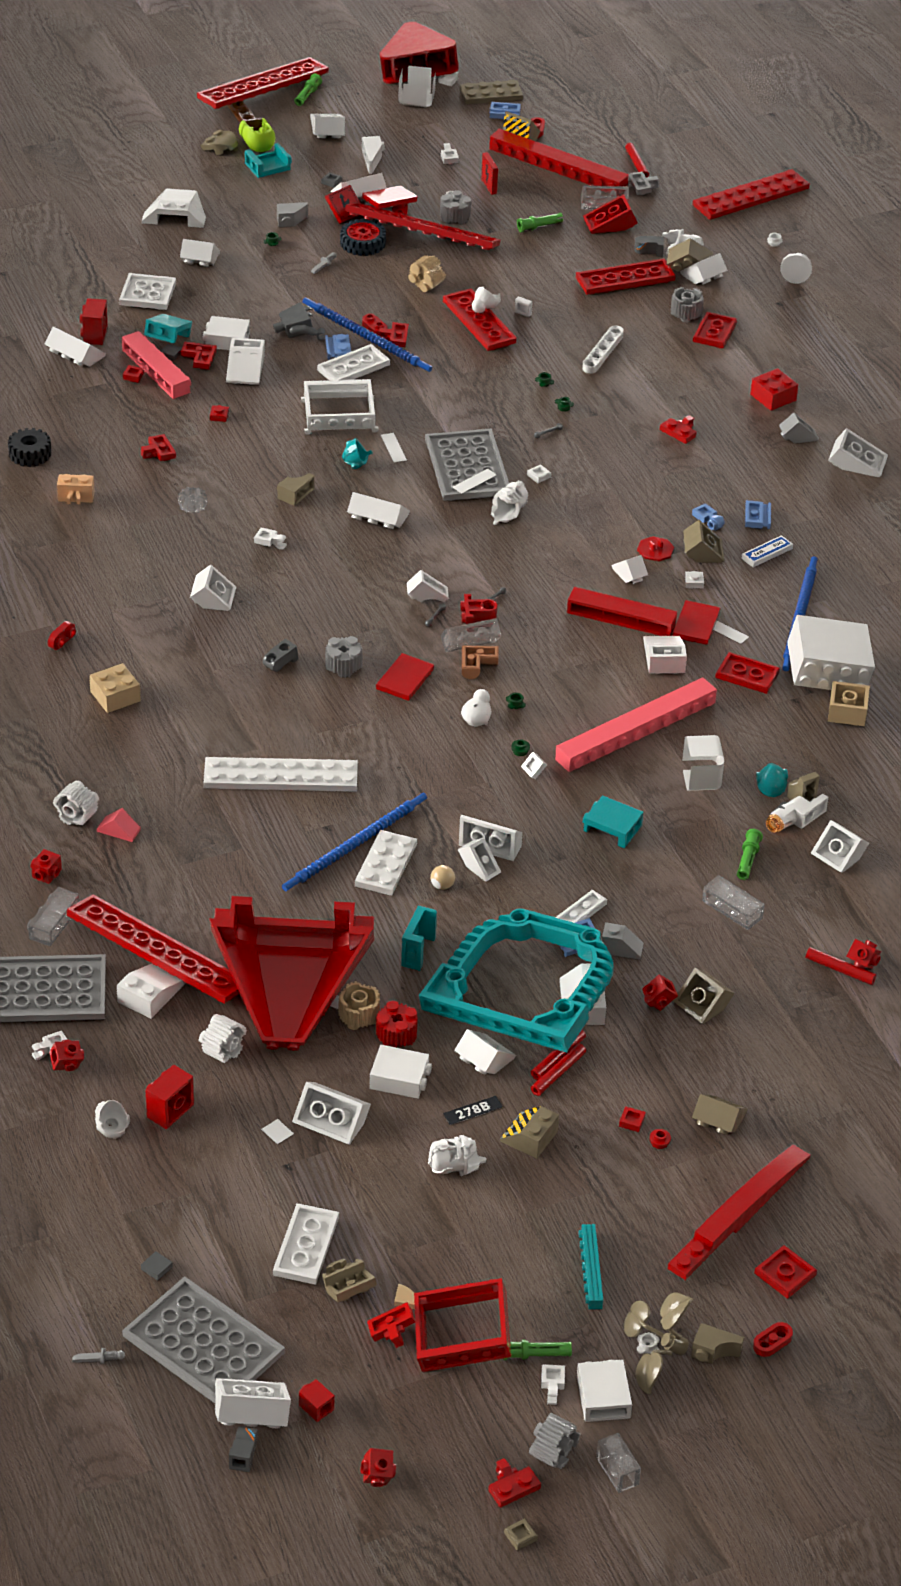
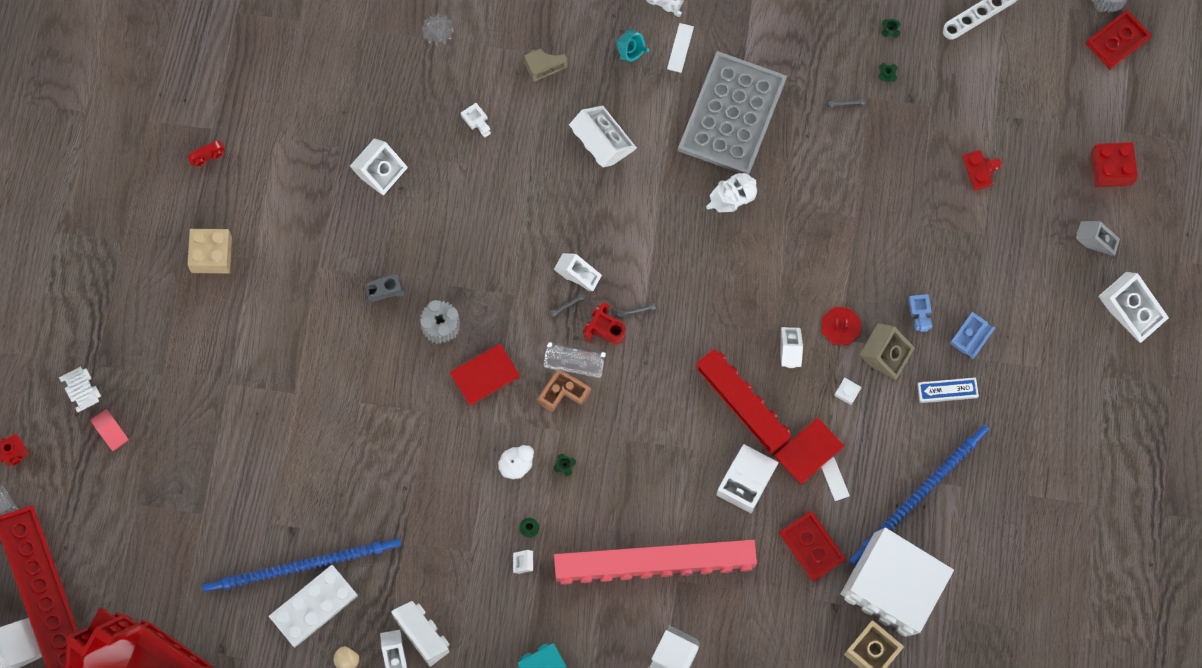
camera: 30 degrees right, 30 degrees up
(280, 774) = (292, 440): white plate -> none
(474, 481) = (720, 143): white sticker -> none
(539, 473) = (796, 160): white tile -> none

